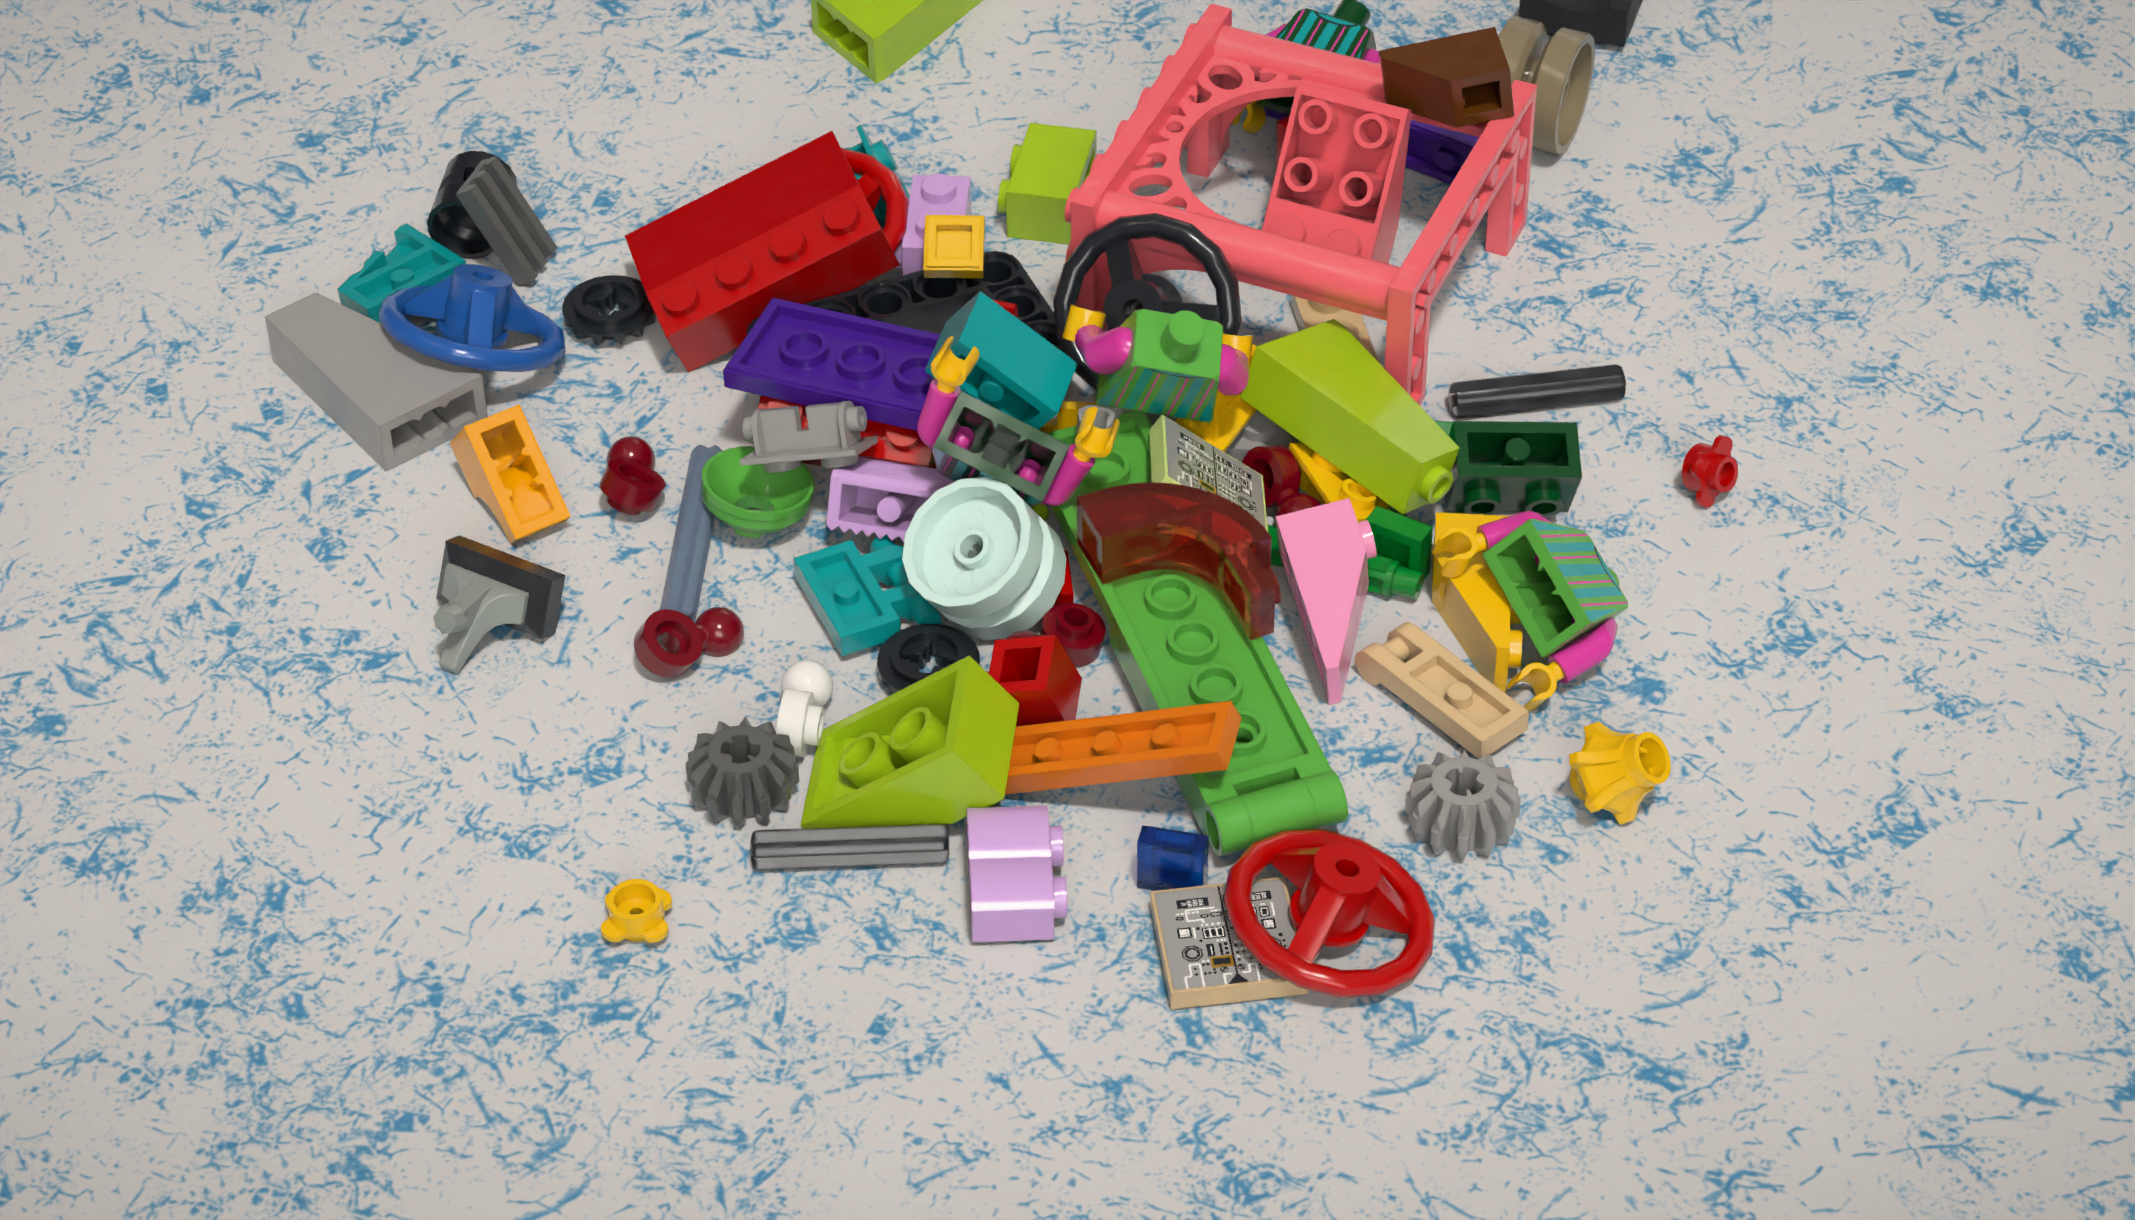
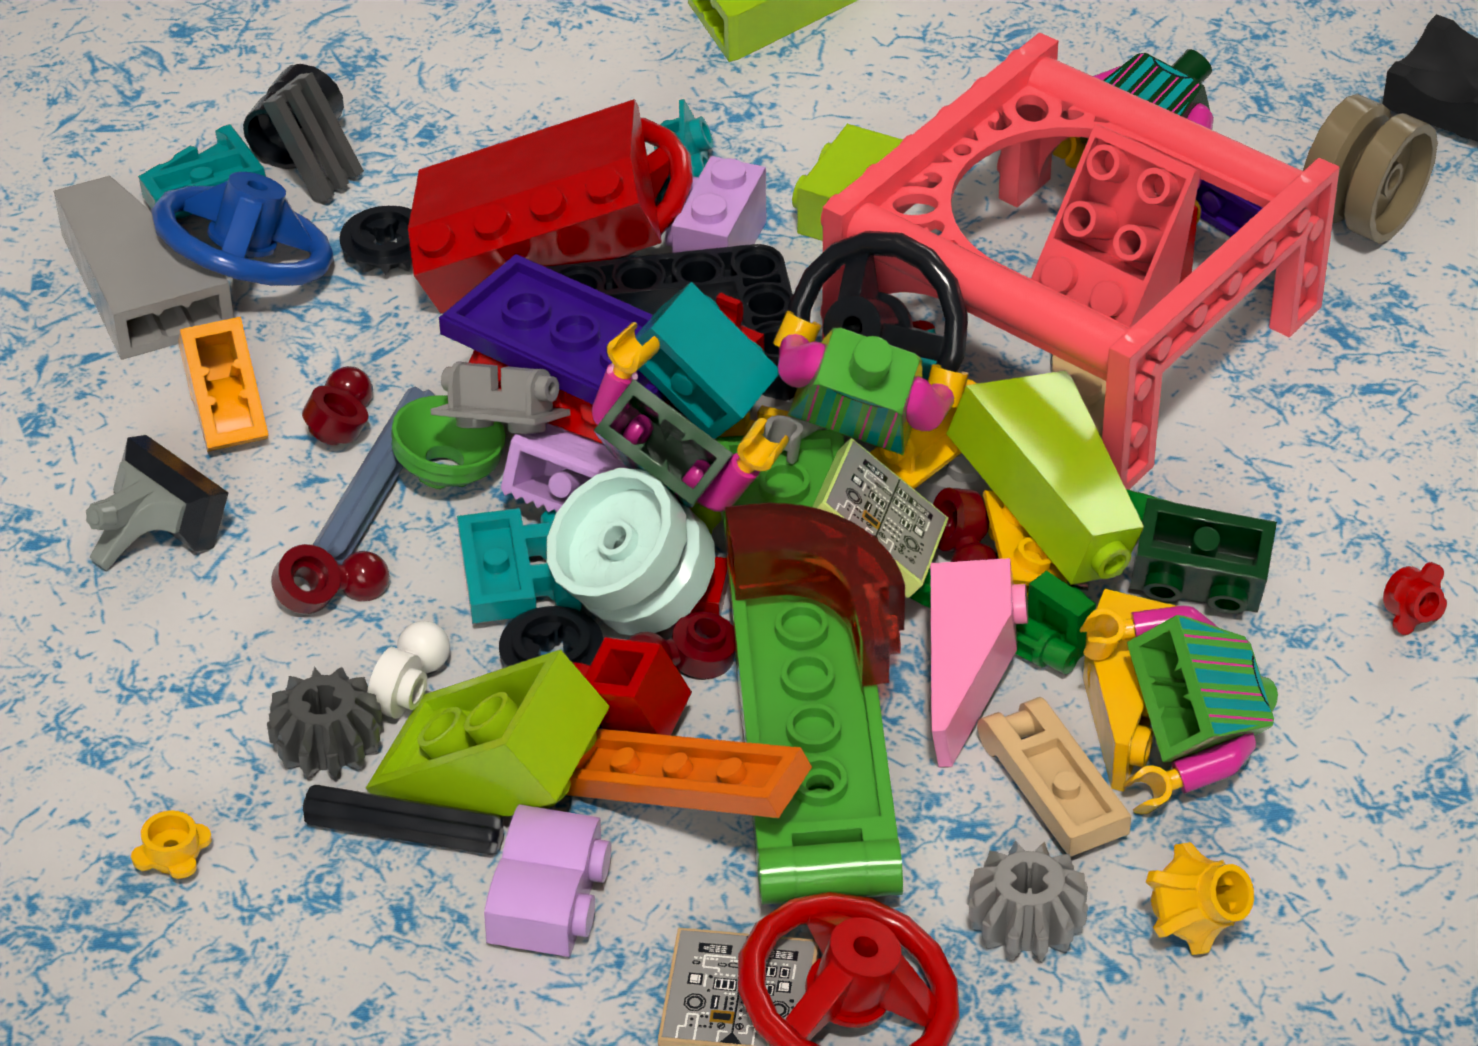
camera: 15 degrees right, 0 degrees up
(954, 246) = (719, 233): yellow tile -> none
(1171, 859) = (709, 898): clear blue tile -> none
(1450, 78) = (1246, 145): reddish brown slope -> none
(1536, 391) = (1267, 481): black axle -> none

